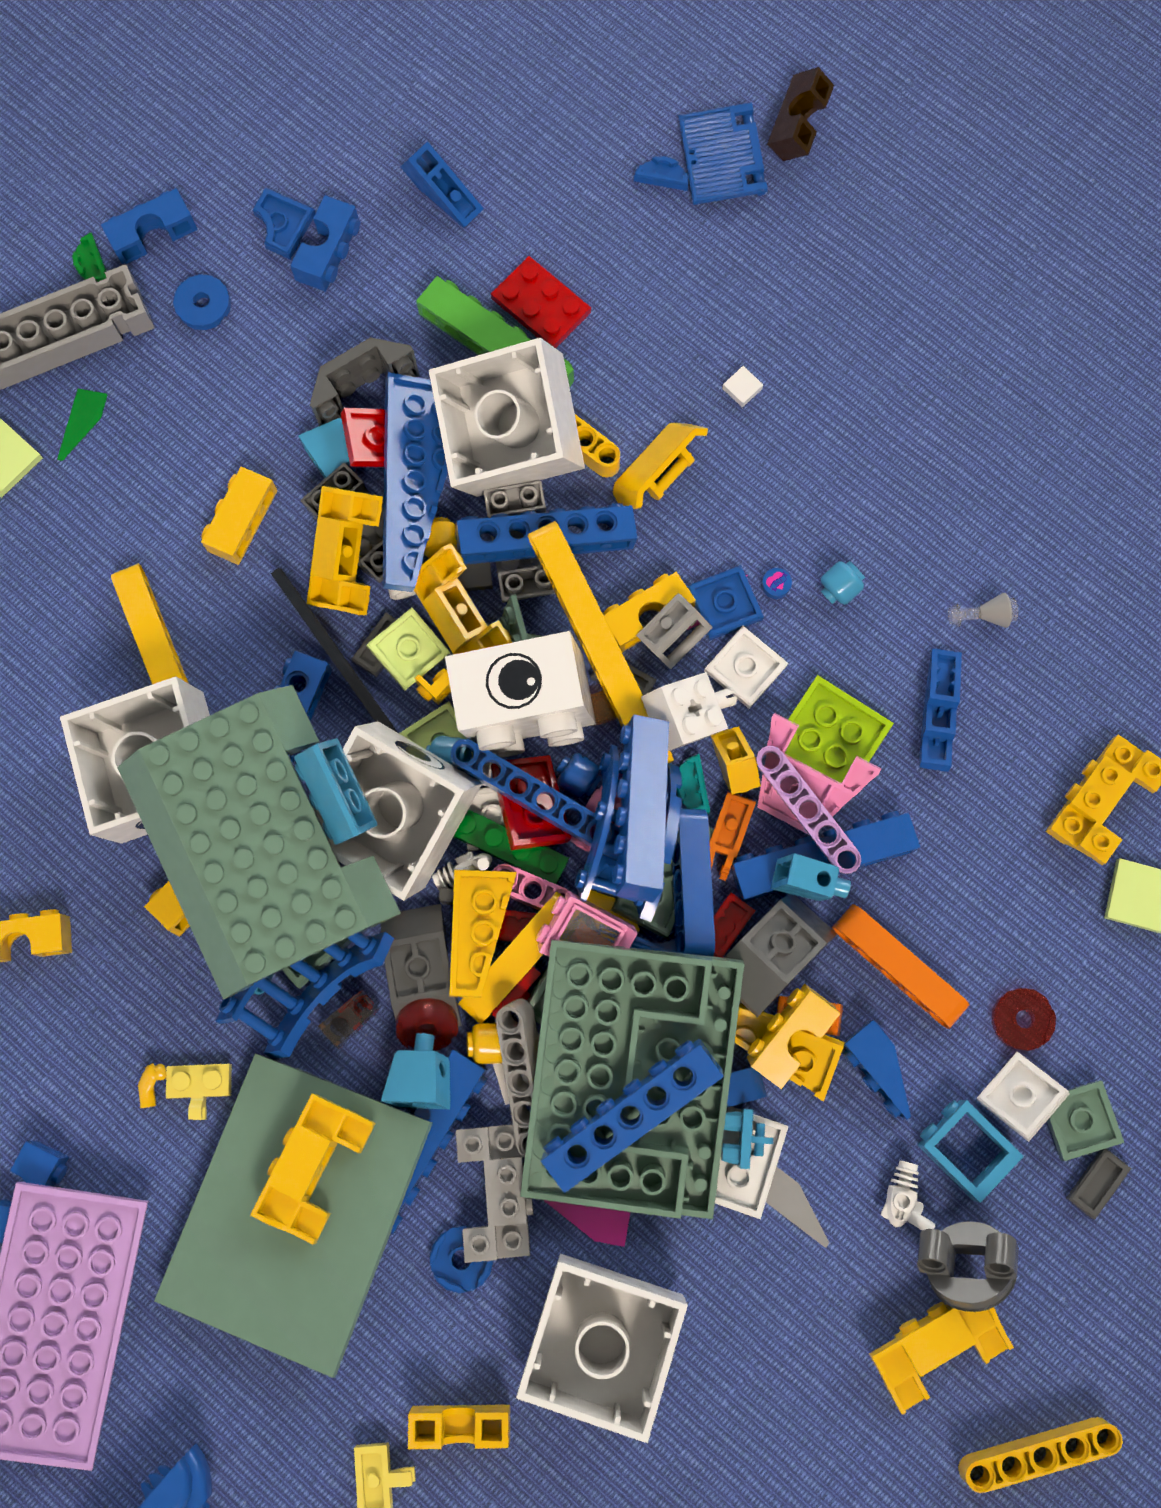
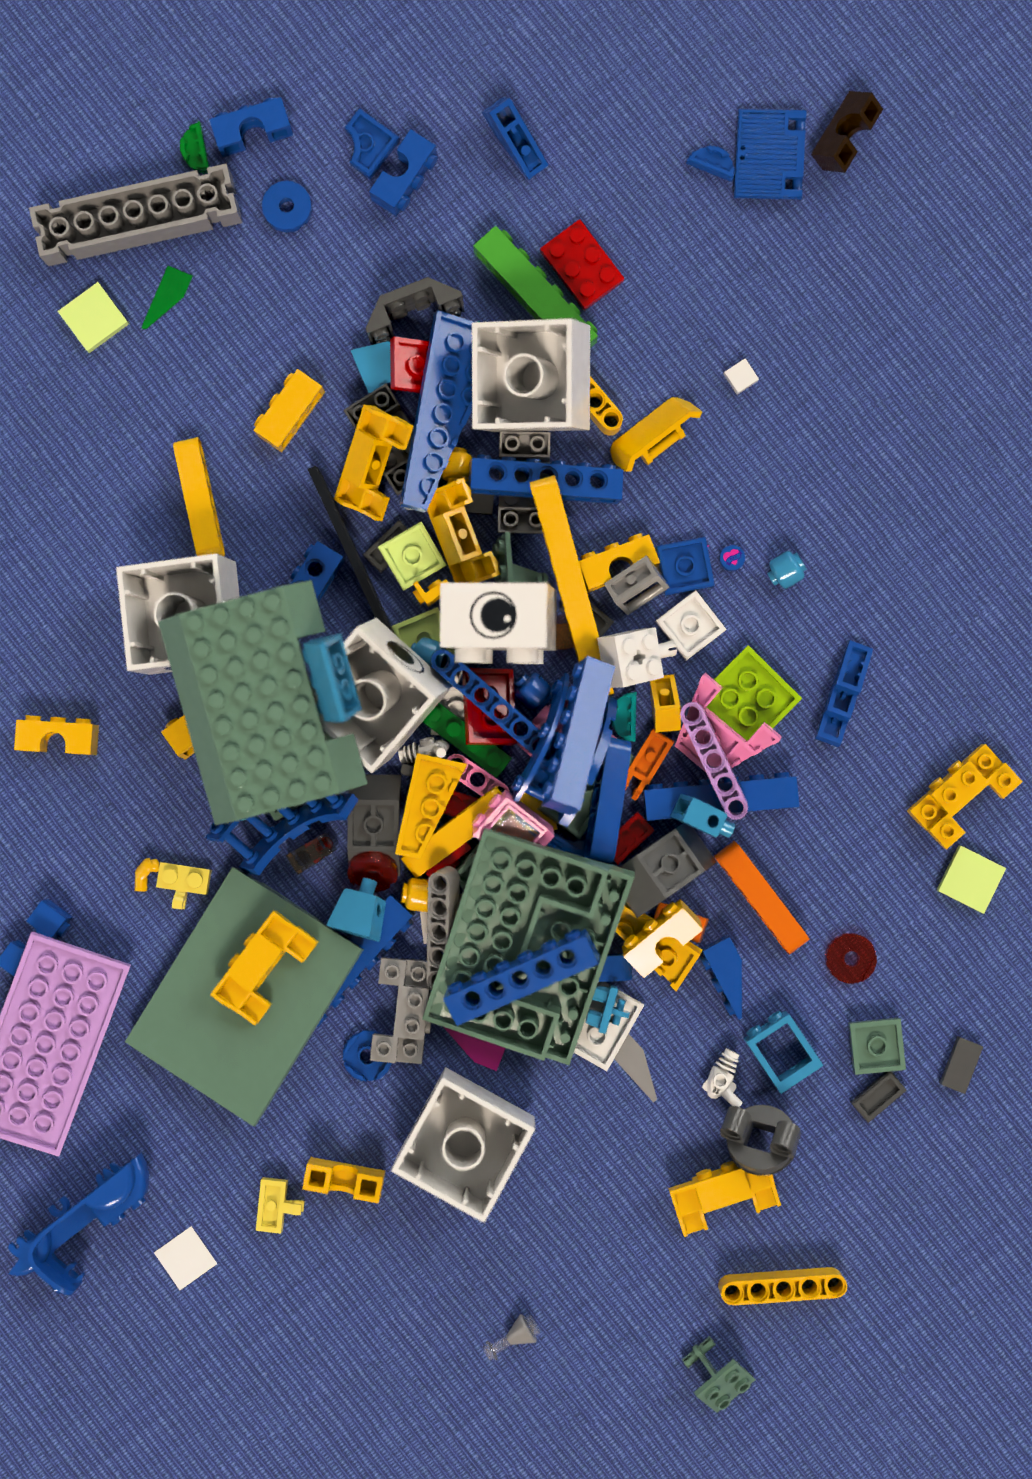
camera: 15 degrees right, 10 degrees up
(998, 611) = (912, 619): piece -> none
(1023, 1096) = (834, 1018): white tile -> none

